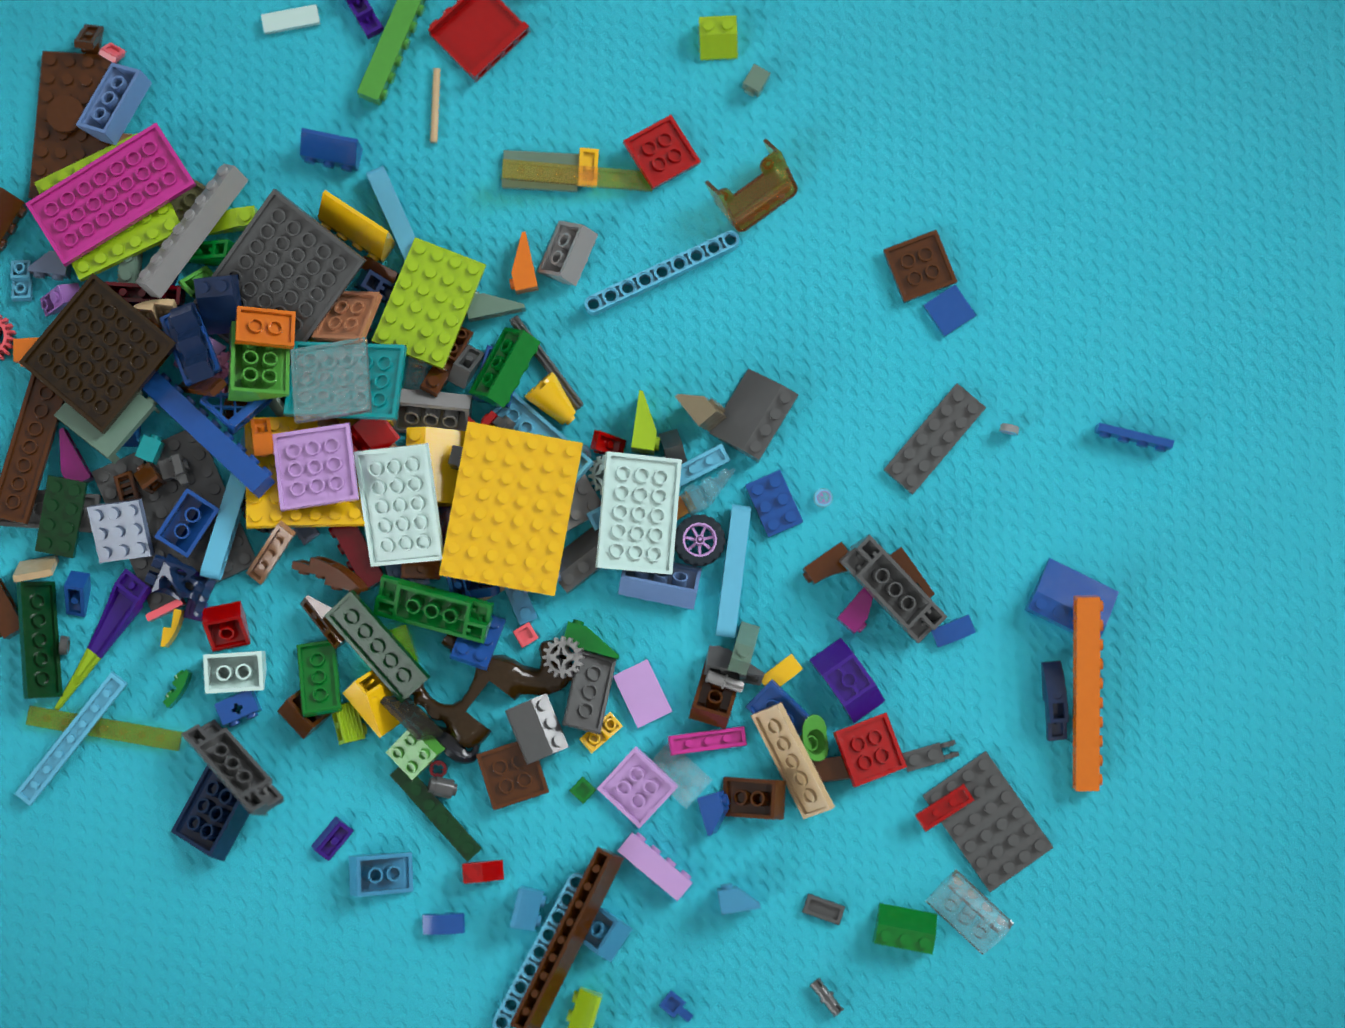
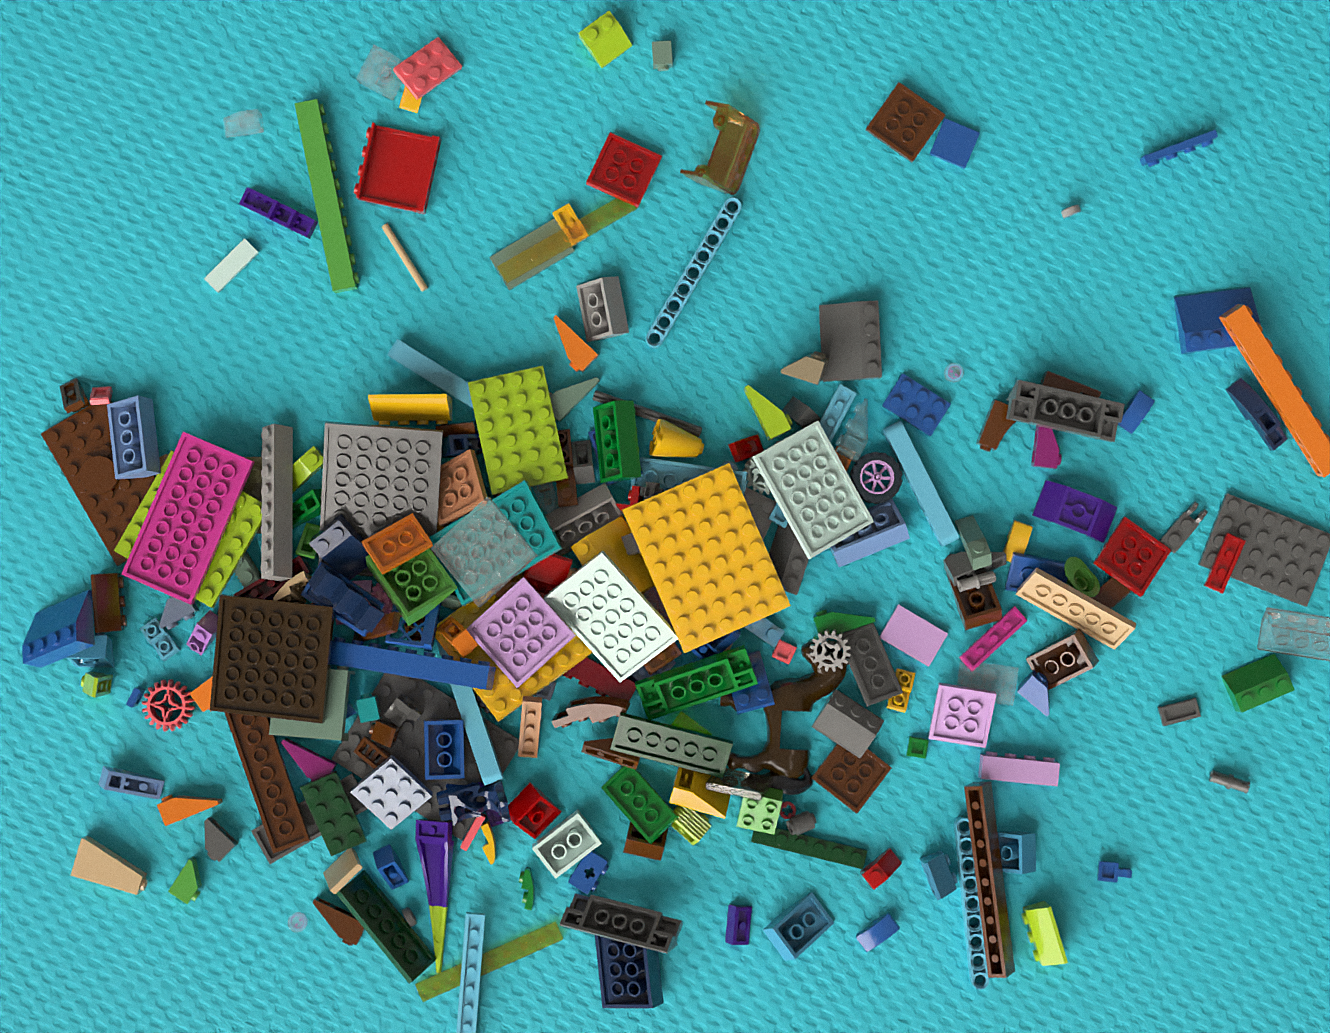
camera: 30 degrees left, 5 degrees up
(330, 150) = (344, 356): blue slope -> none
(734, 899) = (1104, 754): dark azure slope -> none
(934, 438) = (1013, 260): dark grey plate -> none

